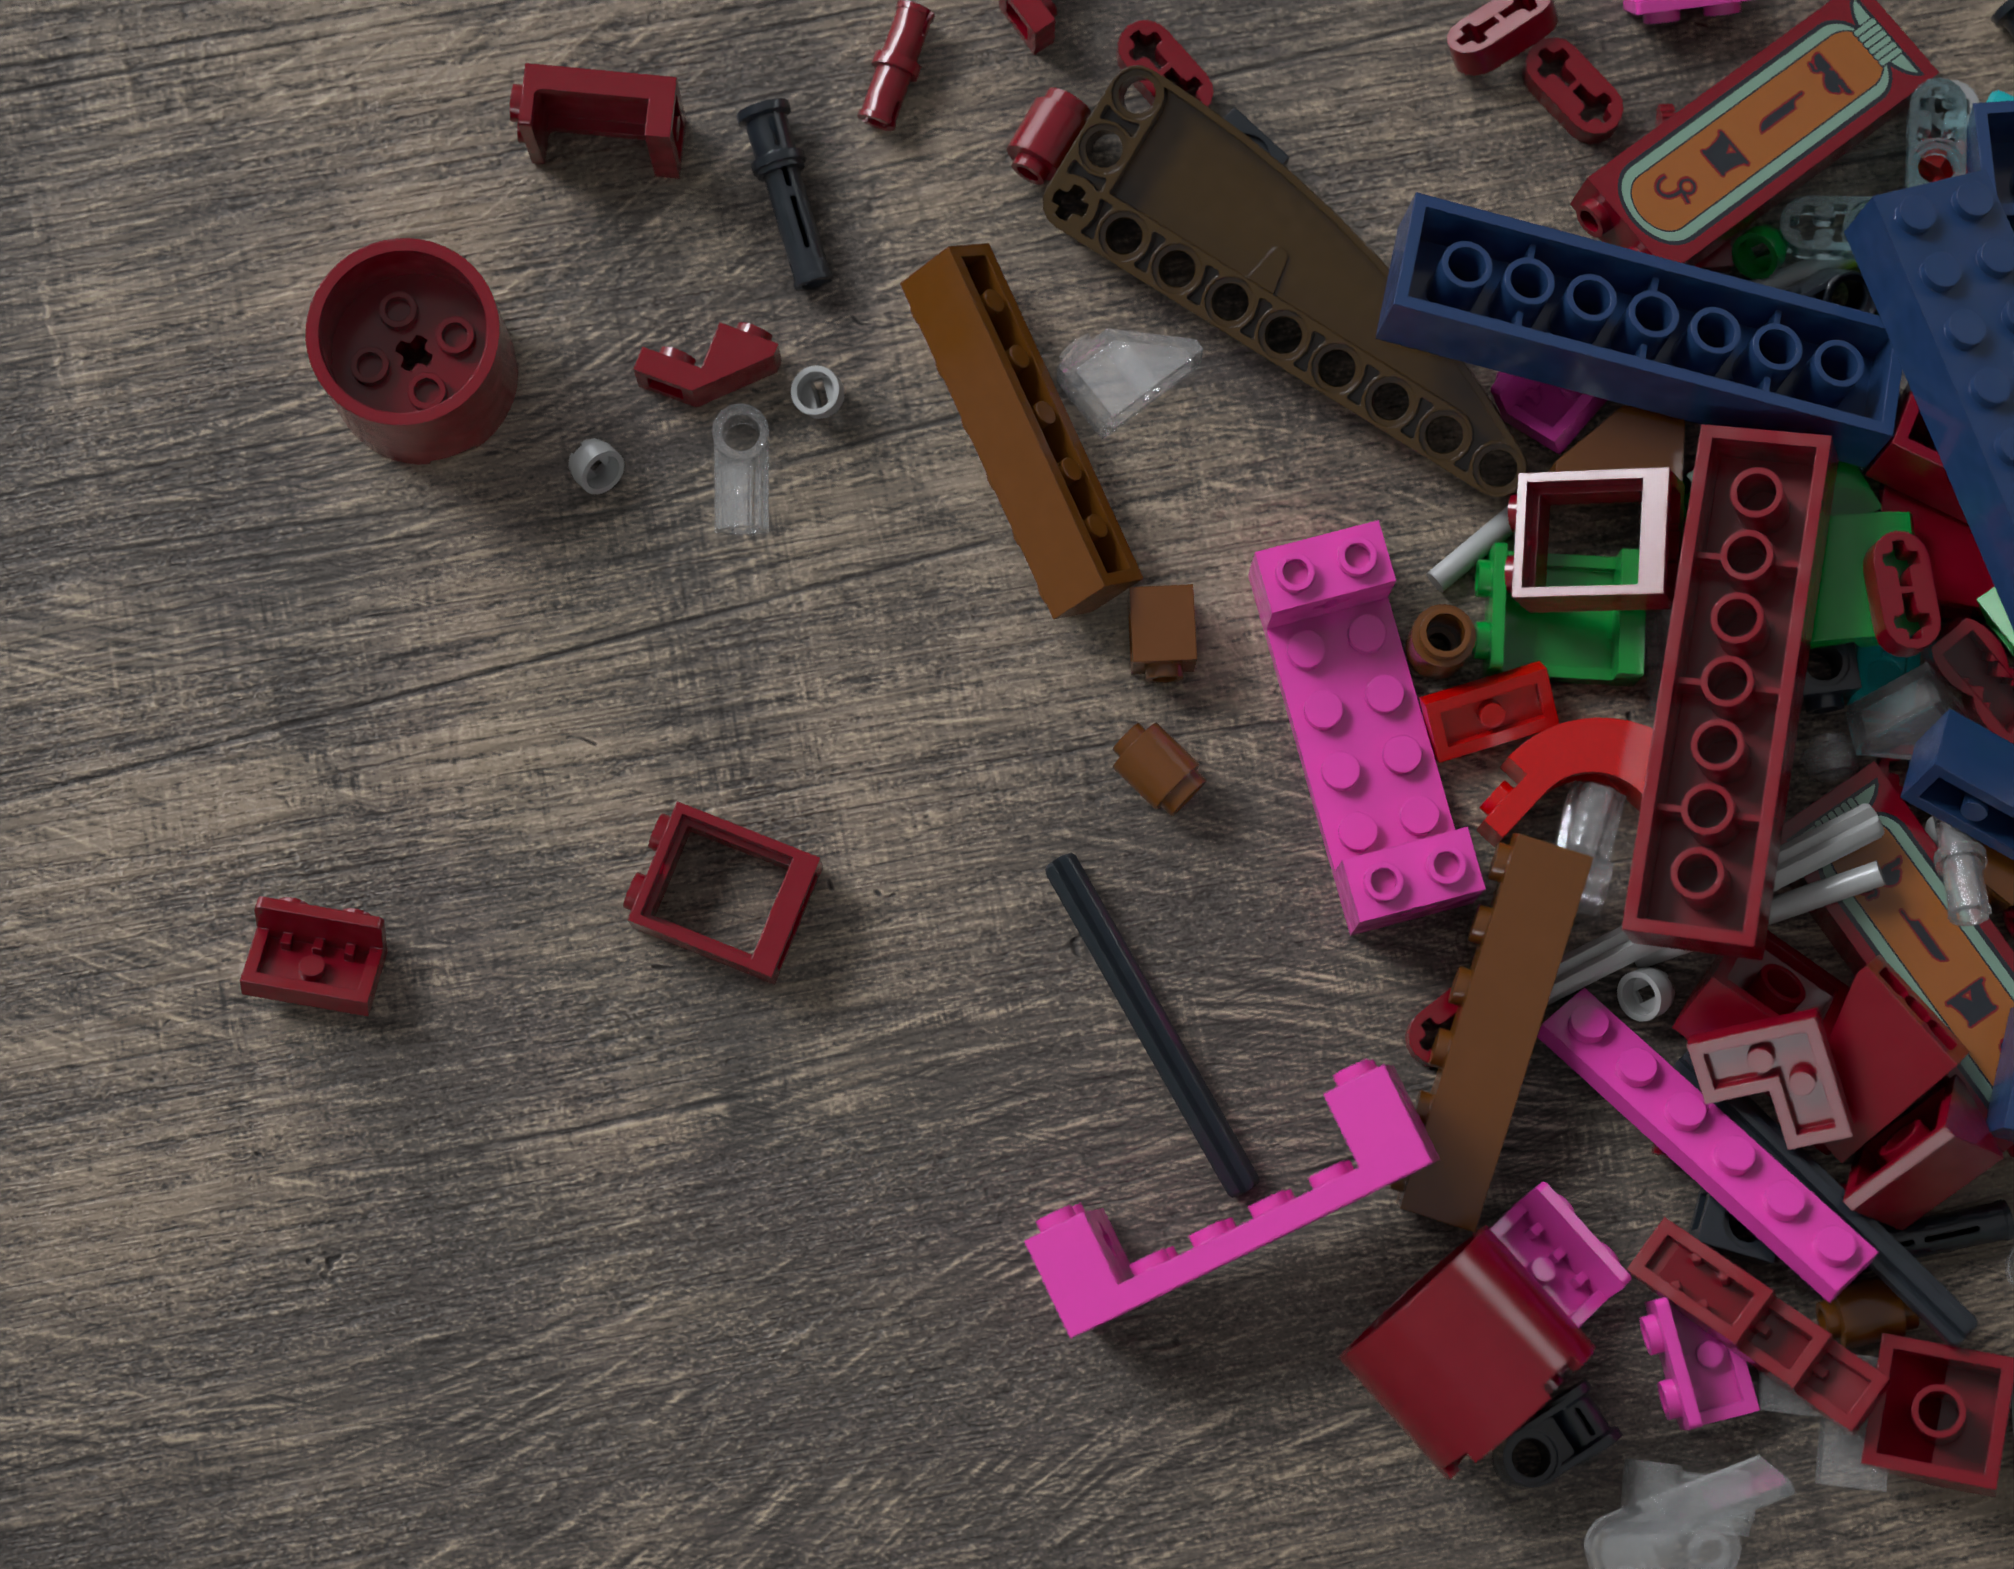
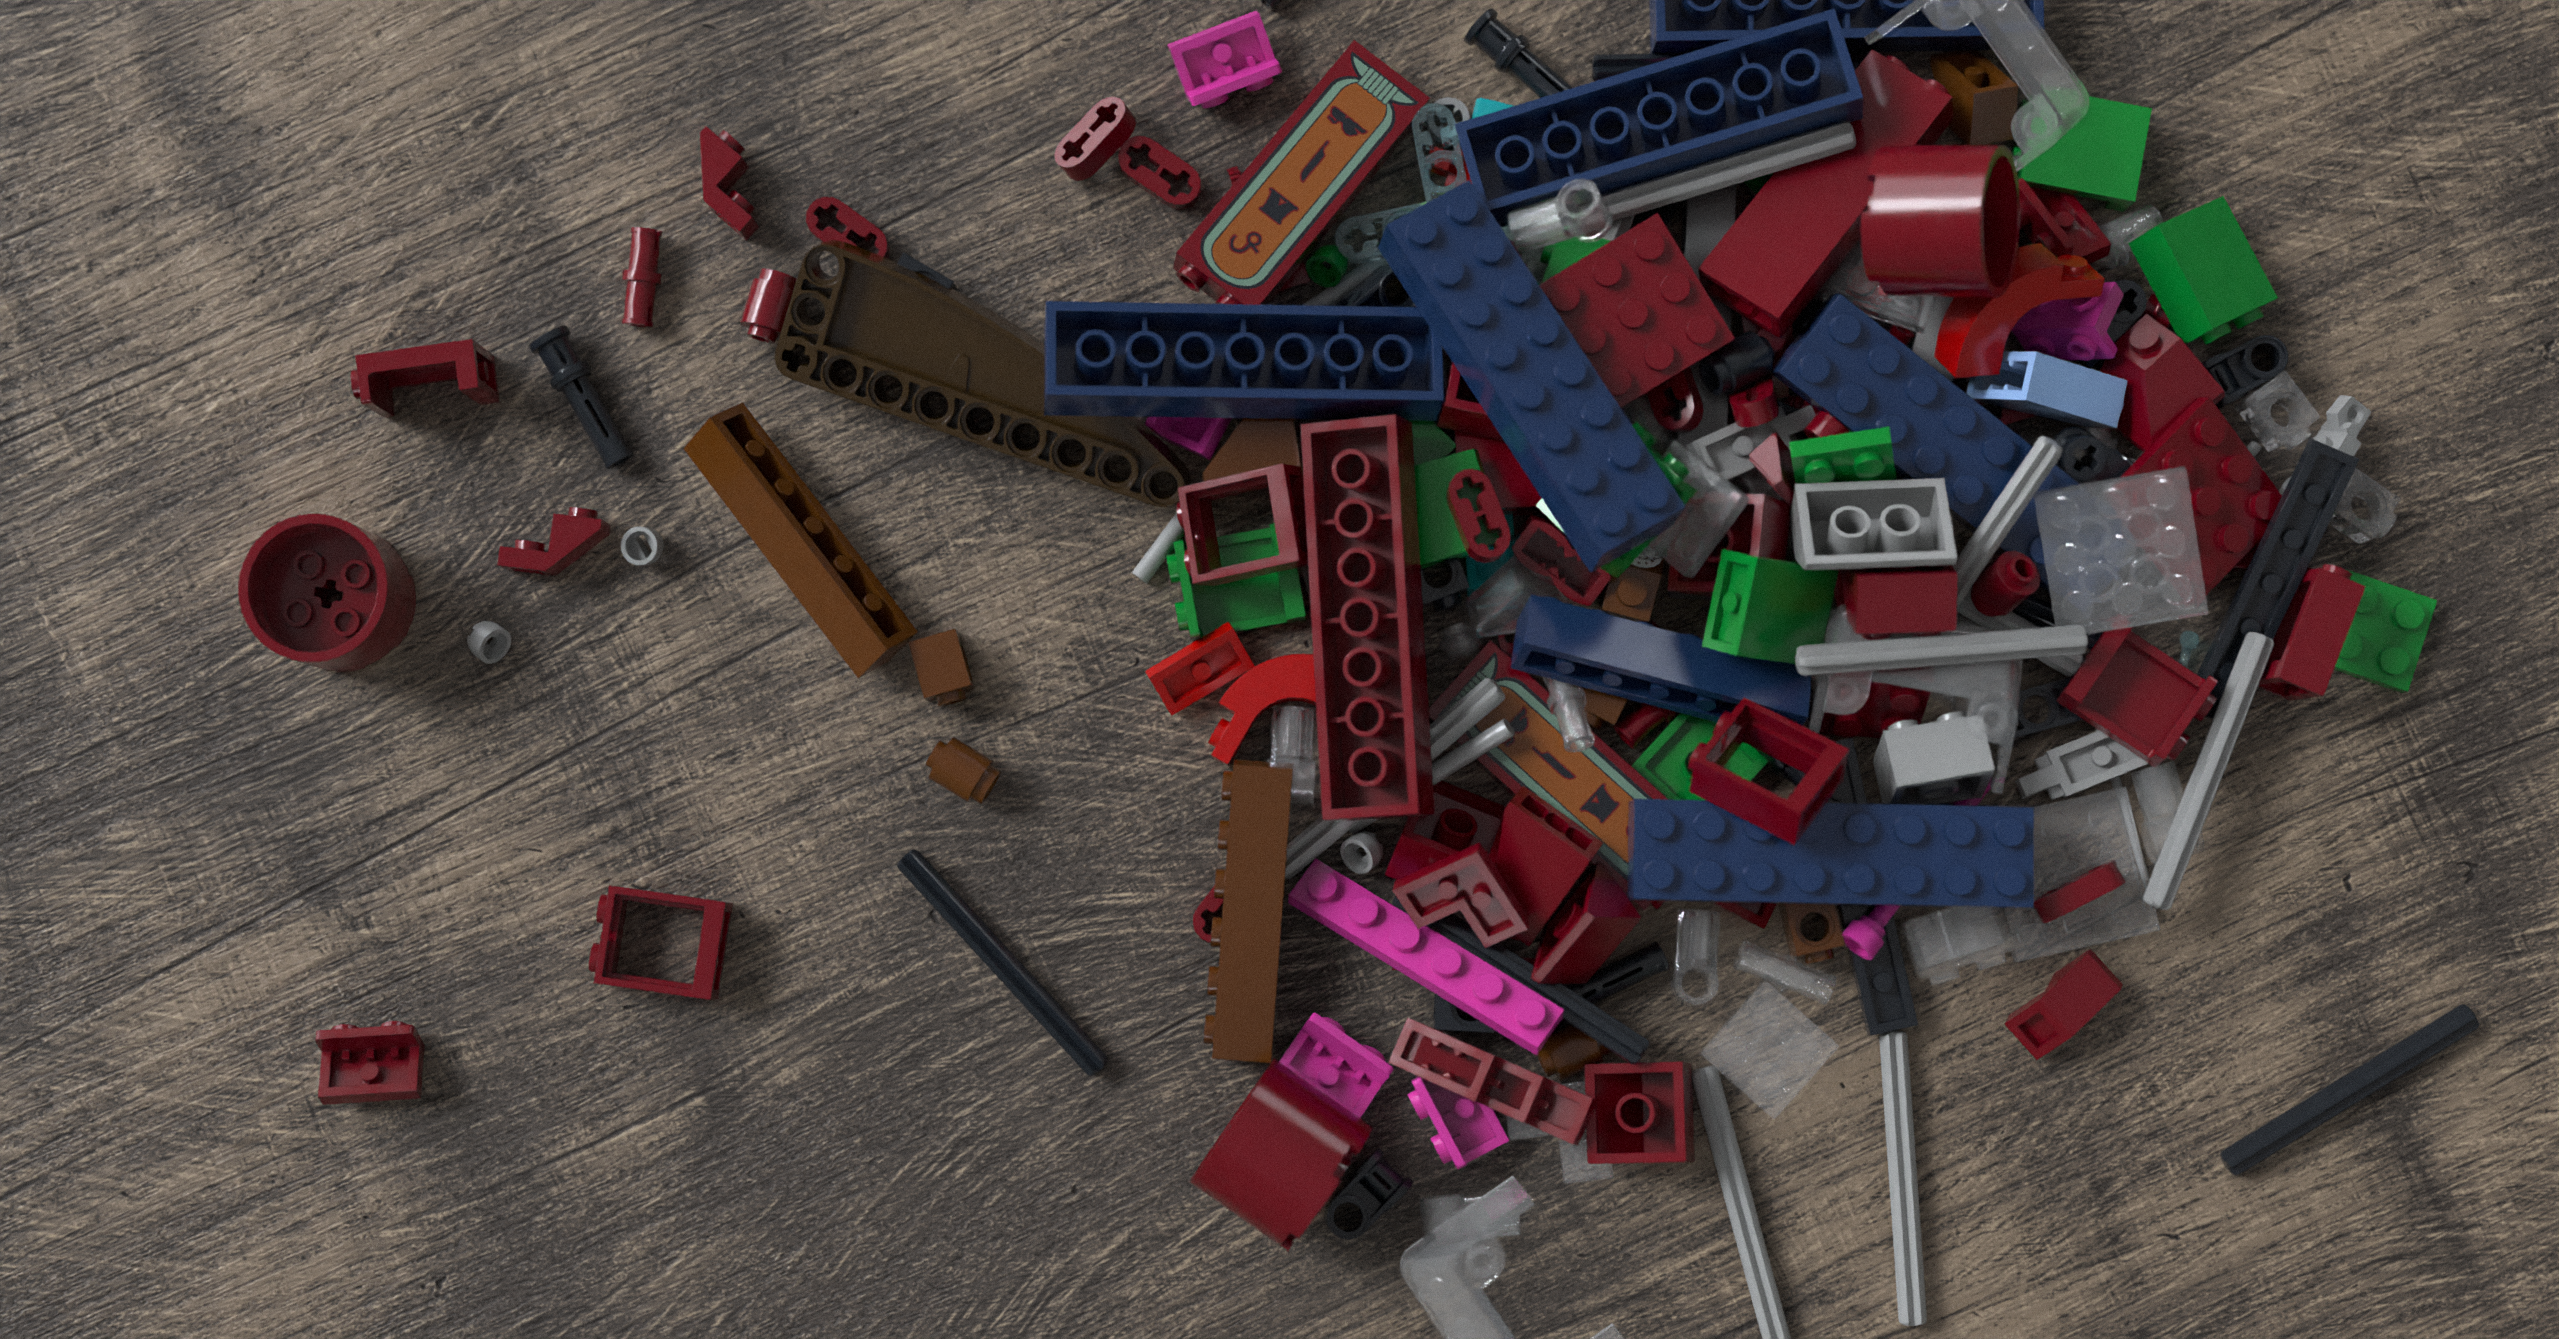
camera: 10 degrees left, 5 degrees up
(741, 476) = (600, 626): clear piece -> none
(1096, 1282) = (998, 1162): dark pink plate -> none
(1123, 373) = (868, 476): clear slope -> none
(1361, 729) = (1107, 705): dark pink plate -> none
(1450, 626) = (1145, 611): reddish brown brick -> none

